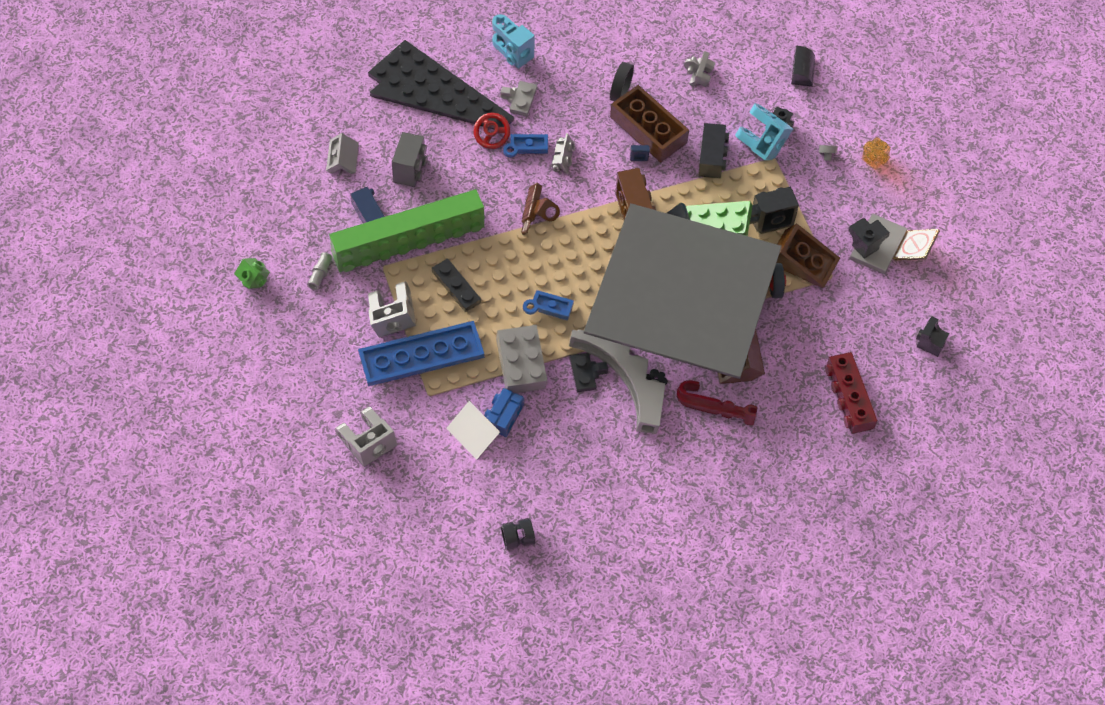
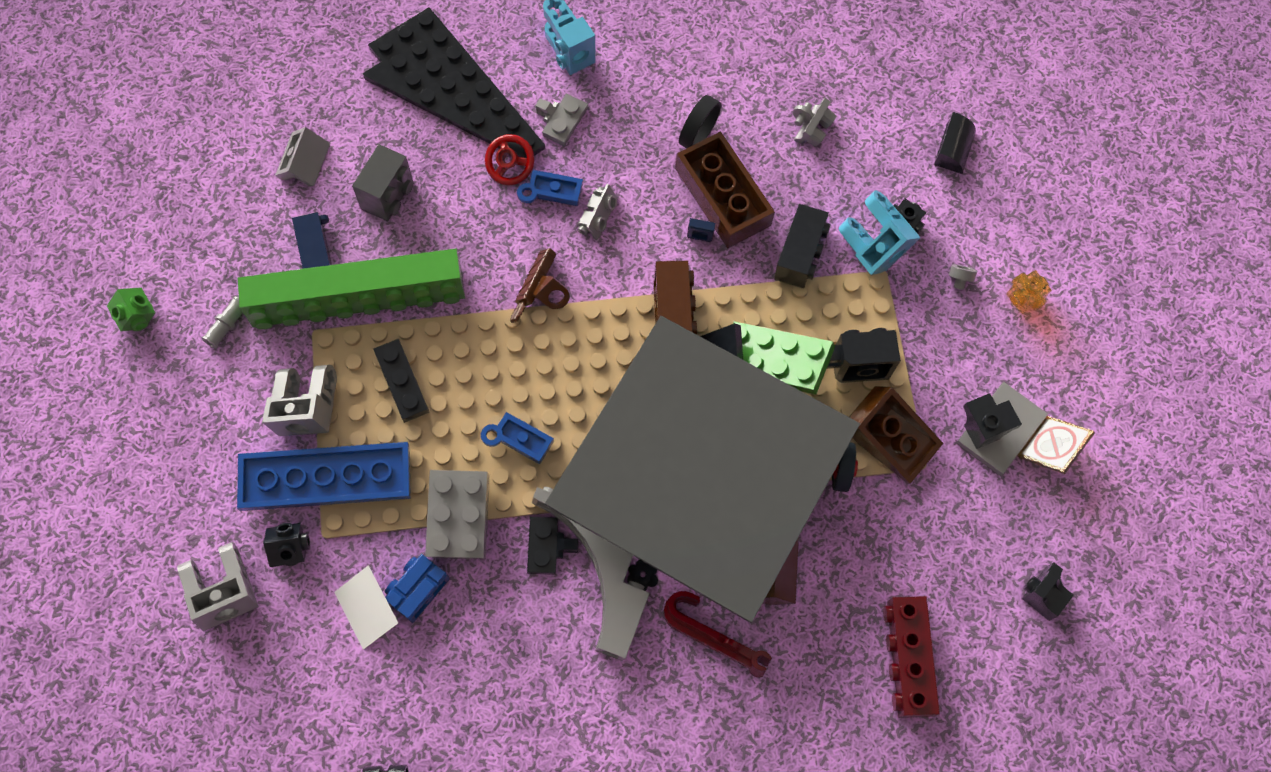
camera: 10 degrees right, 10 degrees up
(407, 400) = (286, 544): none -> black brick

